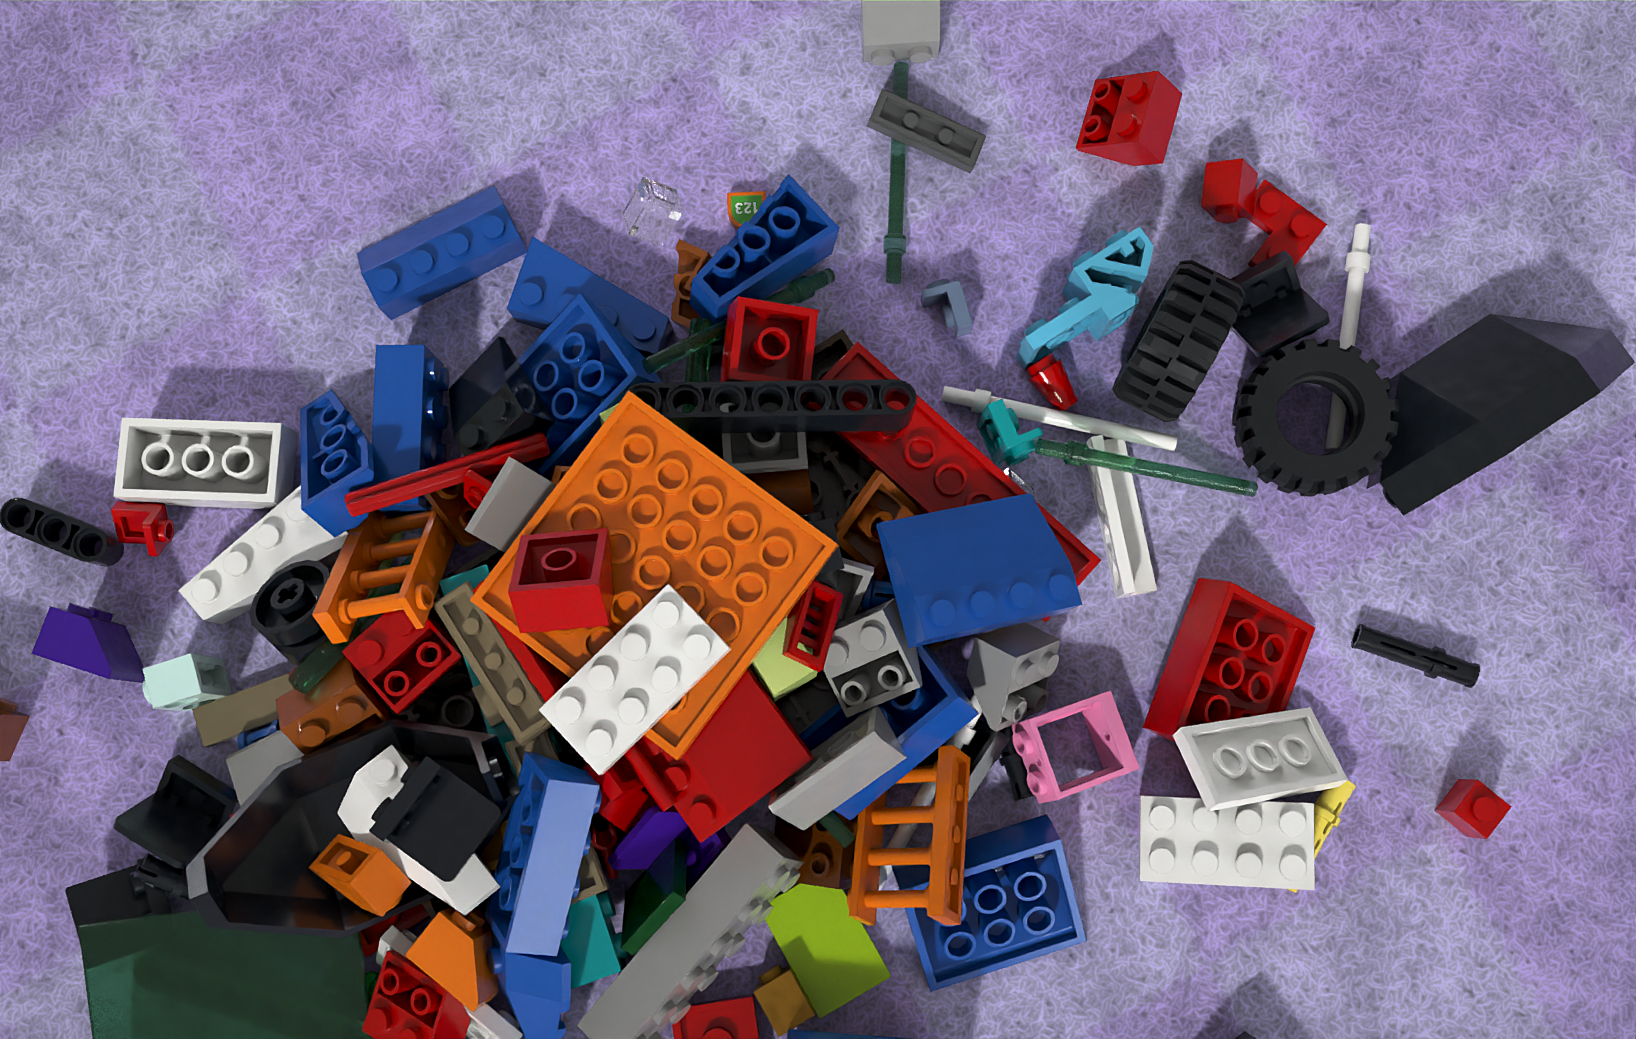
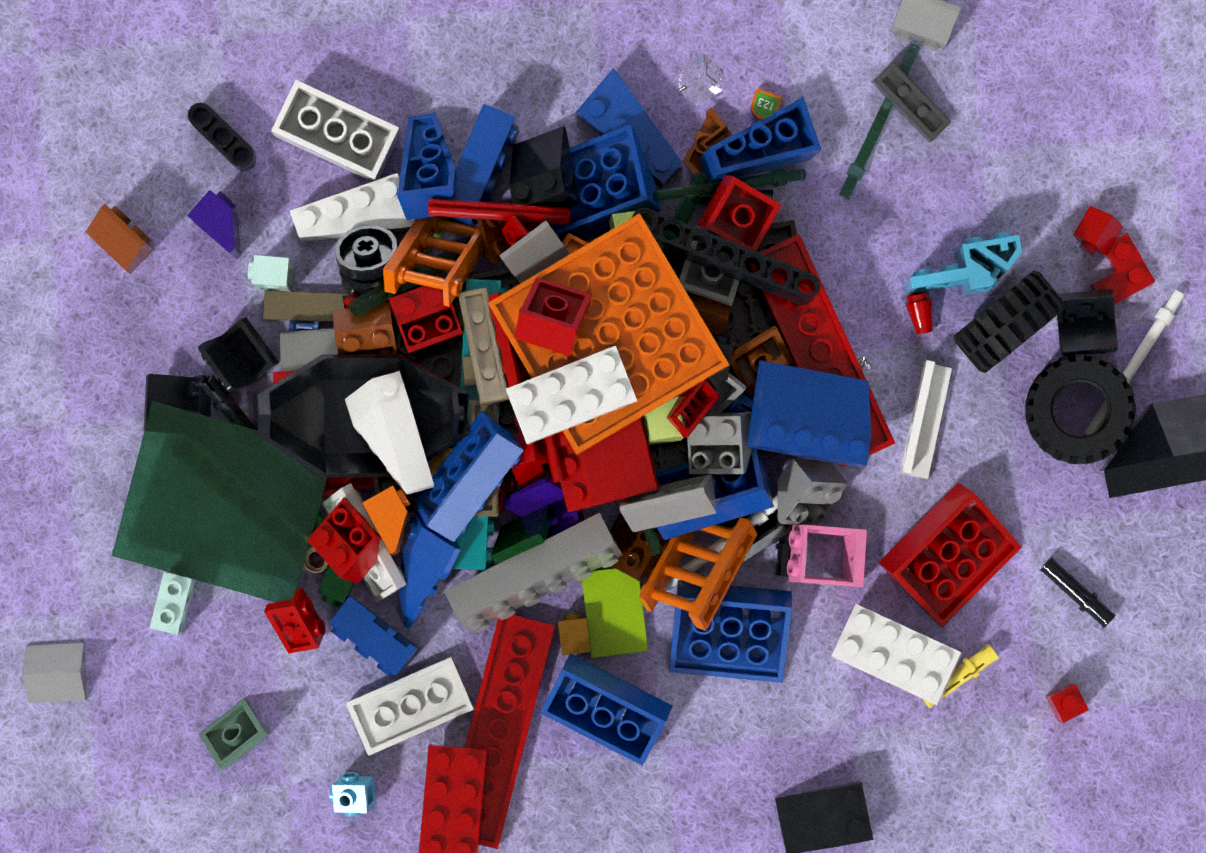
camera: 15 degrees right, 5 degrees up
(143, 524) = (278, 154): red bracket -> none
(361, 874) = (349, 443): orange slope -> none
(435, 819) = (414, 429): black bracket -> none
(440, 253) = (546, 47): blue slope -> none
(956, 311) = (875, 236): sand blue bracket -> none
(980, 398) = (868, 305): white bar -> none
(999, 432) = (868, 331): teal bracket -> none
(1079, 454) = (912, 369): clear green bar -> none
(1130, 118) = (1053, 152): red slope -> none
(1259, 758) = (942, 611): white plate -> none

